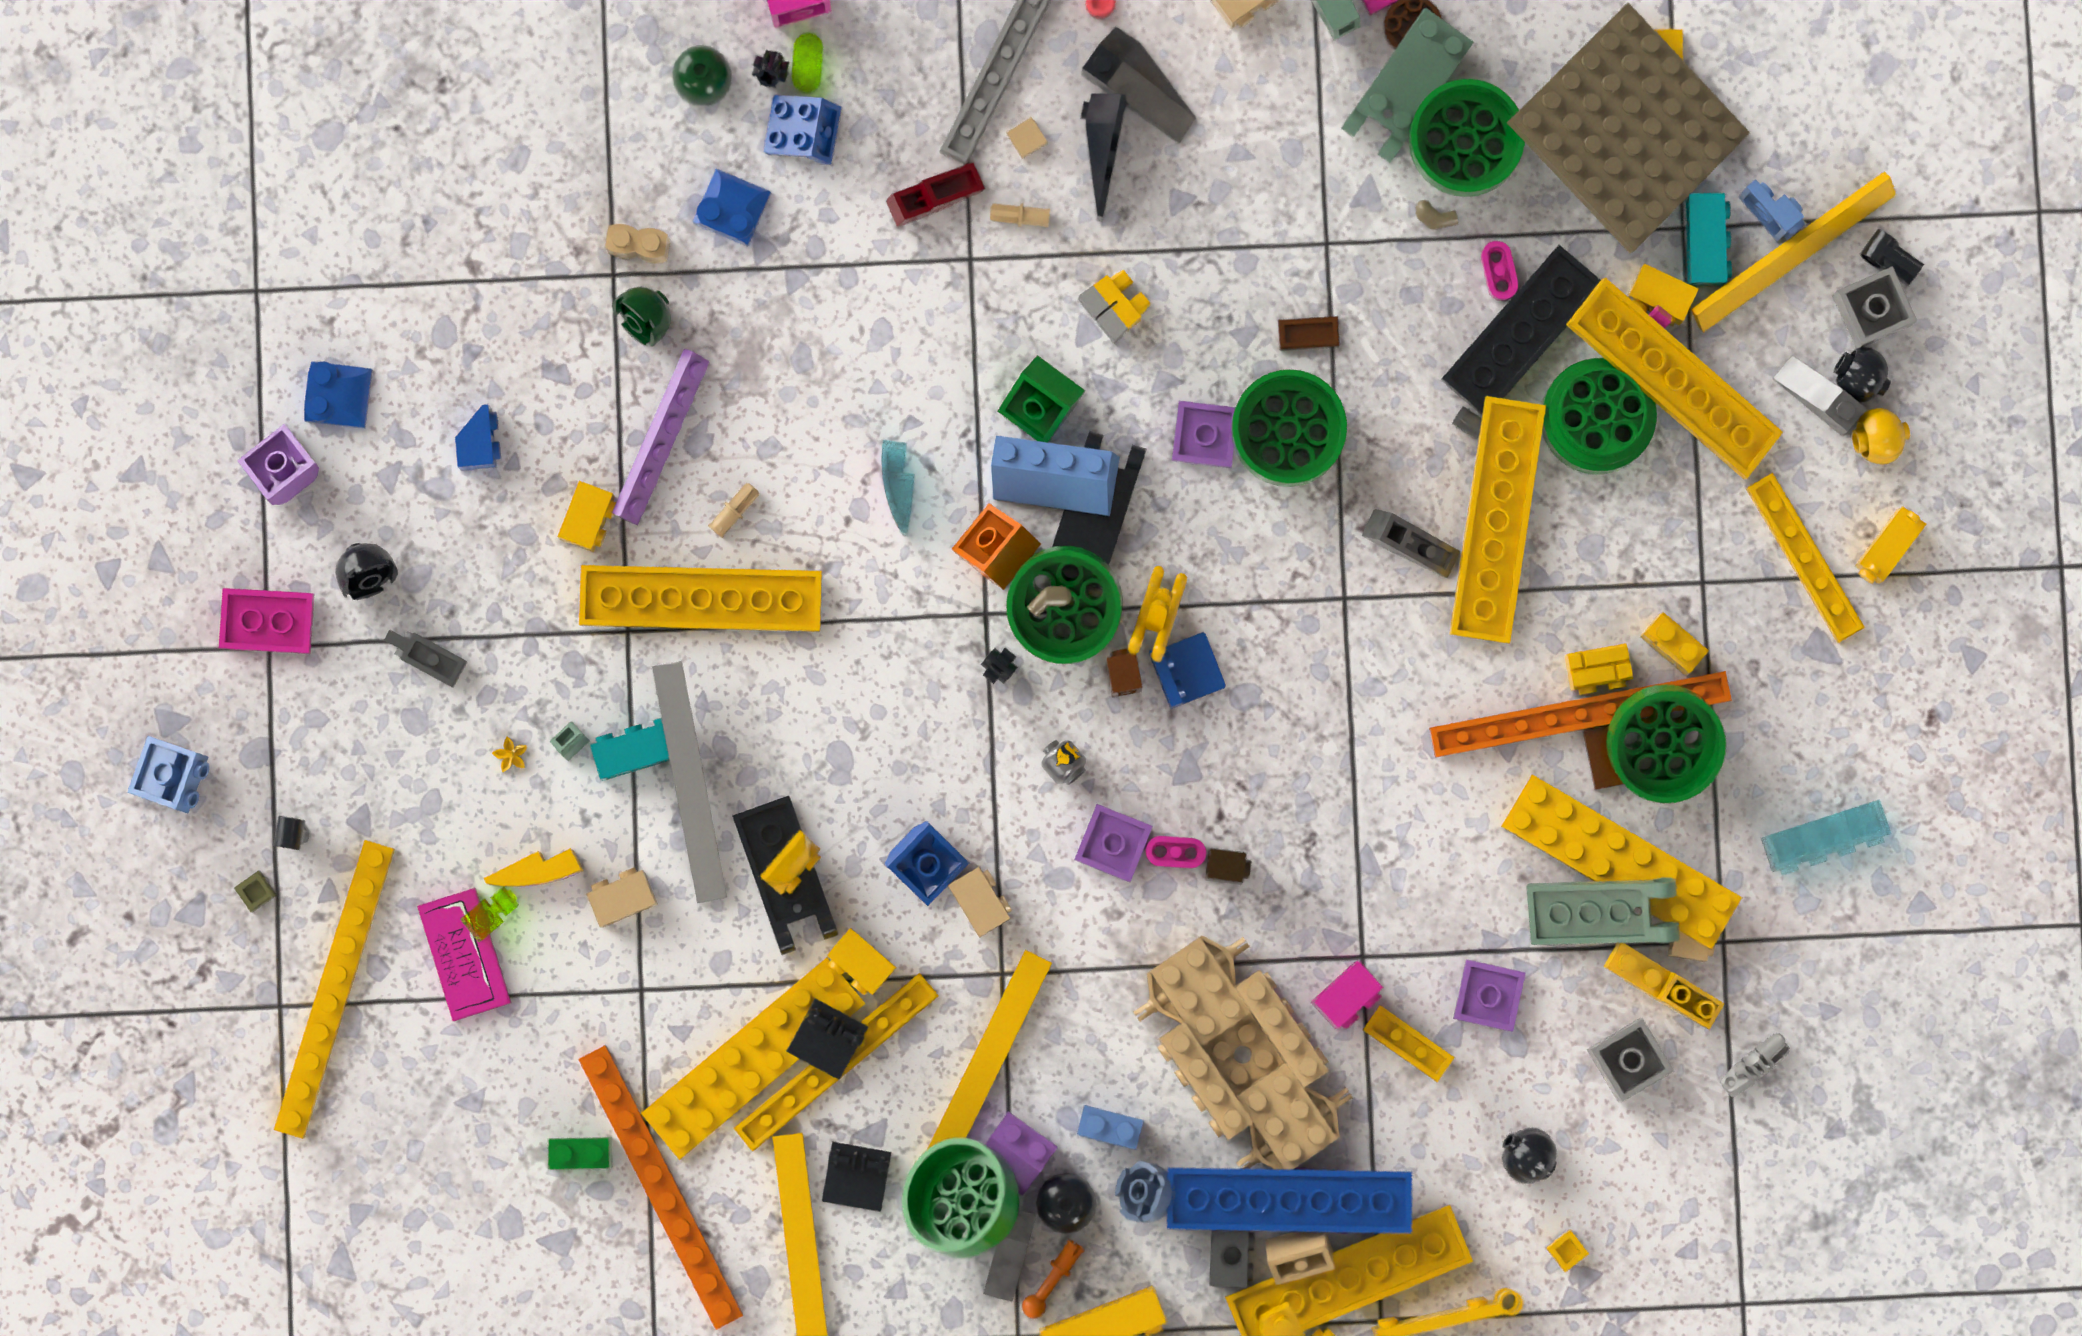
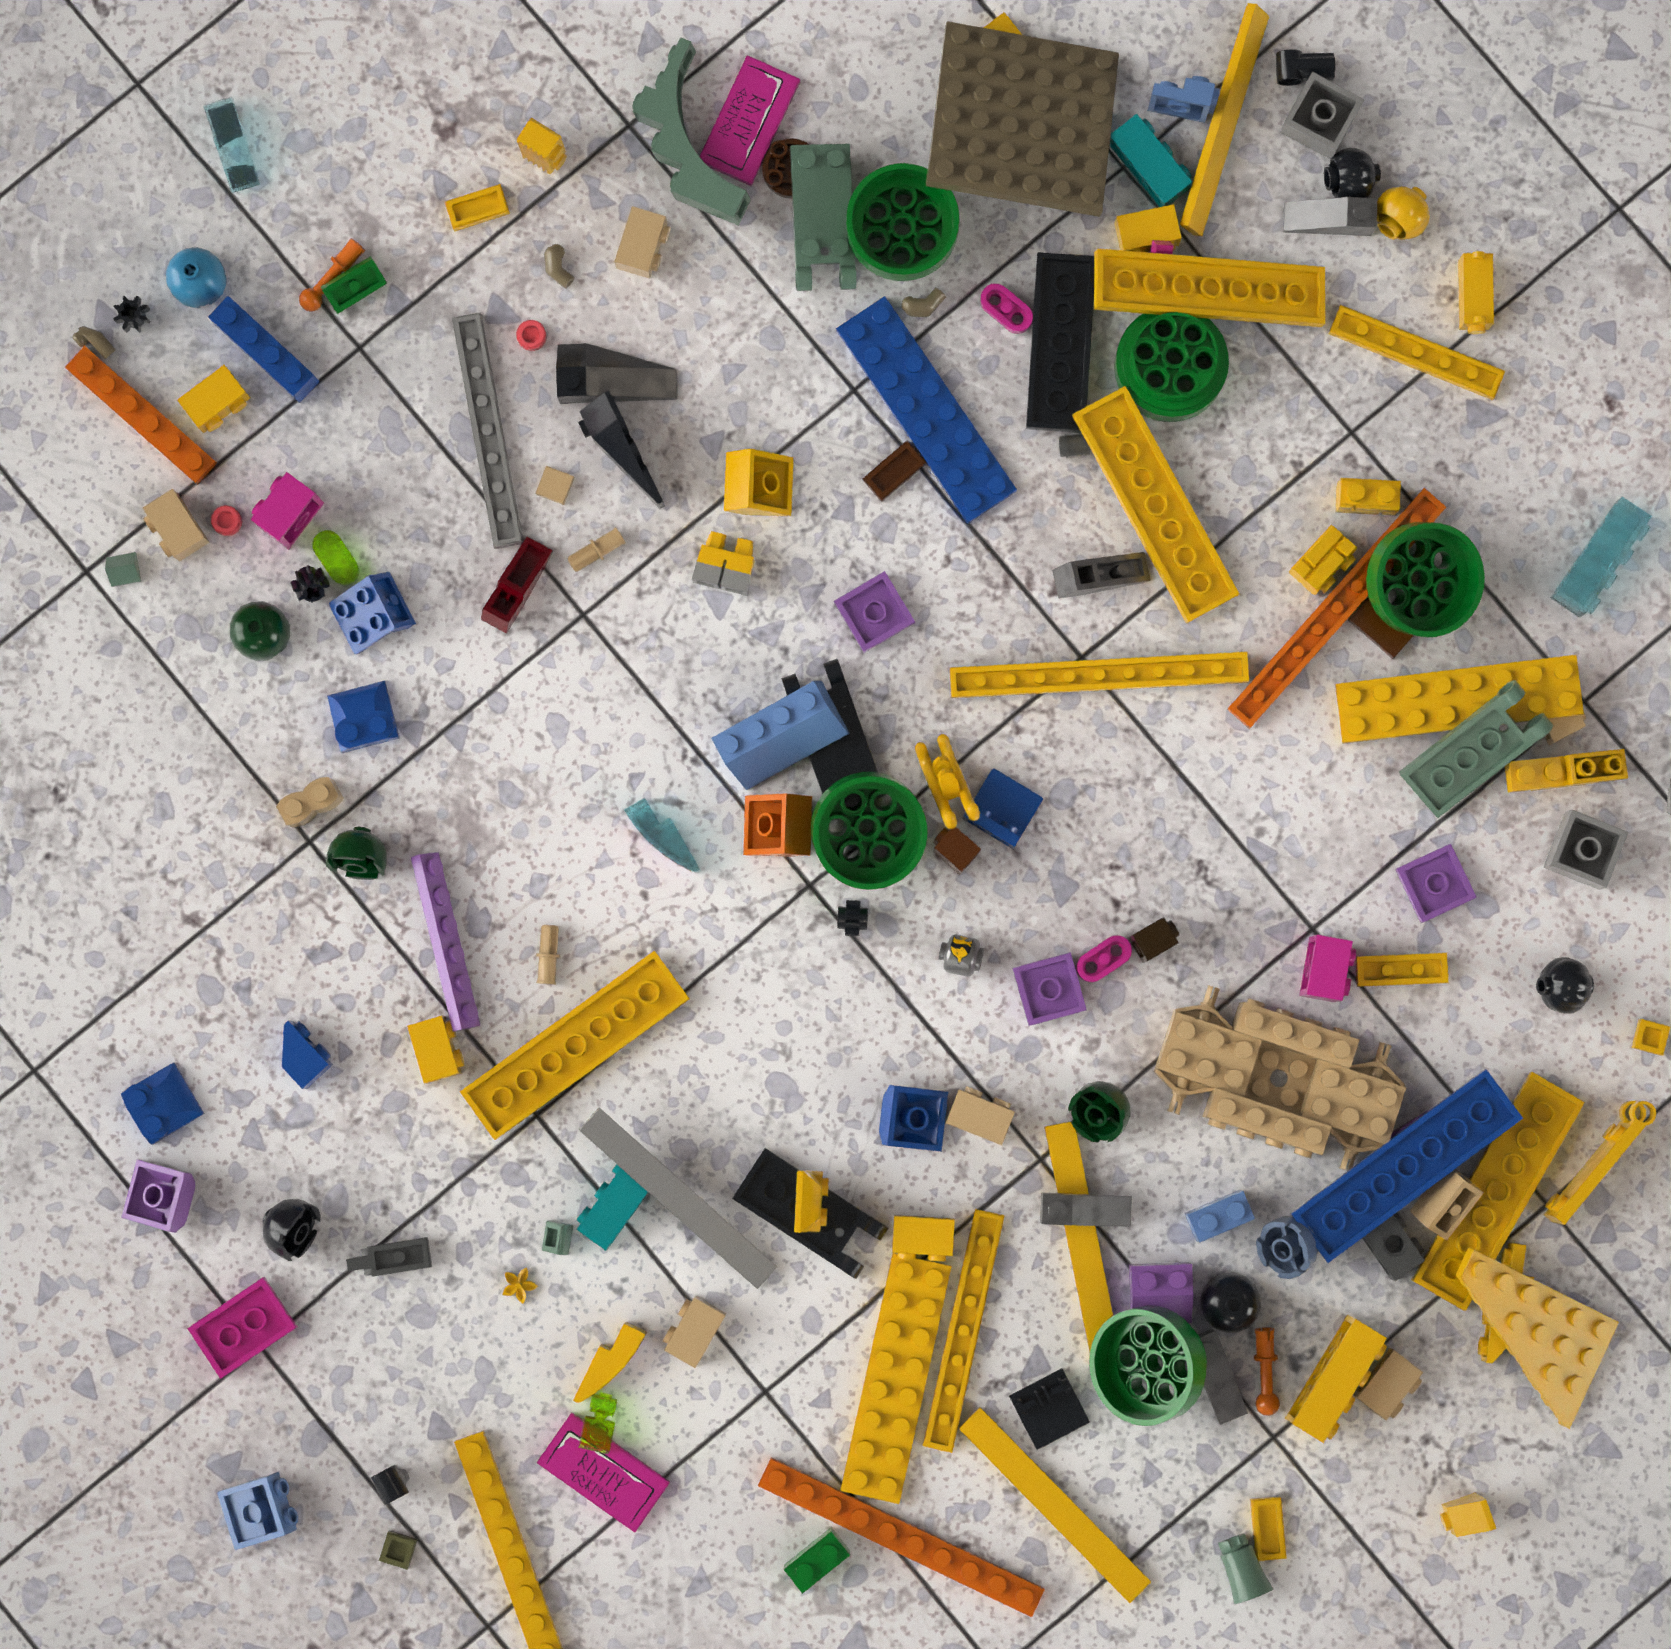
camera: 30 degrees left, 0 degrees up
(827, 1039) = (943, 1318): black hinge -> none
(1006, 1040) = (1085, 1209): none -> flat silver slope
(1041, 400) = (724, 683): green slope -> none
(1050, 597) = (853, 833): dark tan arm -> none
(1078, 970) = (1100, 1111): none -> dark green cylinder
(1191, 260) = (758, 483): none -> yellow slope
(1289, 388) = (958, 522): green wheel -> none
(1347, 622) = (1099, 675): none -> yellow plate
(1372, 302) = (926, 410): none -> blue plate

